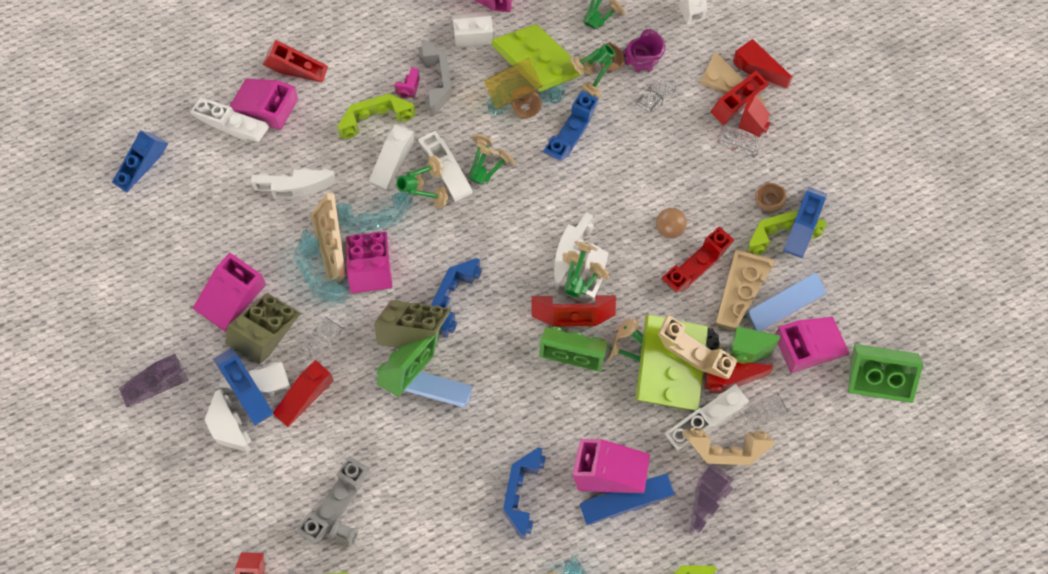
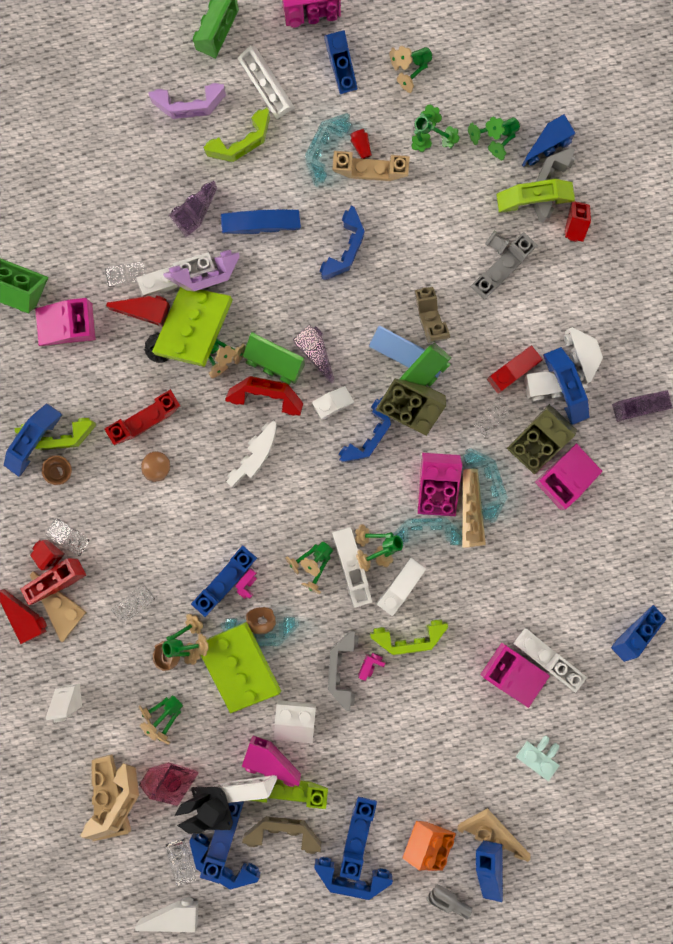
camera: 165 degrees left, 20 degrees up
(231, 38) = (537, 760): none -> light aqua hinge
(294, 63) = (478, 714): red slope -> none
(300, 184) = (489, 576): white slope -> none
(406, 423) = (429, 315): none -> dark tan slope
(500, 317) = (332, 402): none -> white slope
(513, 83) = (269, 636): clear yellow piece -> none
(533, 371) = (313, 347): none -> slope
(550, 128) = (247, 580): none -> dark pink bracket
(575, 284) = (260, 405): plant -> none
(585, 273) = (242, 428): white slope -> none
(610, 467) = (267, 244): dark pink slope -> none
(645, 50) = (130, 654): magenta hair -> none
(670, 414) = (225, 266): none -> lavender slope
(682, 345) = (166, 323): tan slope -> none
(742, 285) = (106, 395): tan wing -> none
(752, 345) = (121, 322): bright green slope -> none
(754, 446) = (143, 240): tan slope -> none
(786, 302) = (75, 367): light blue slope -> none

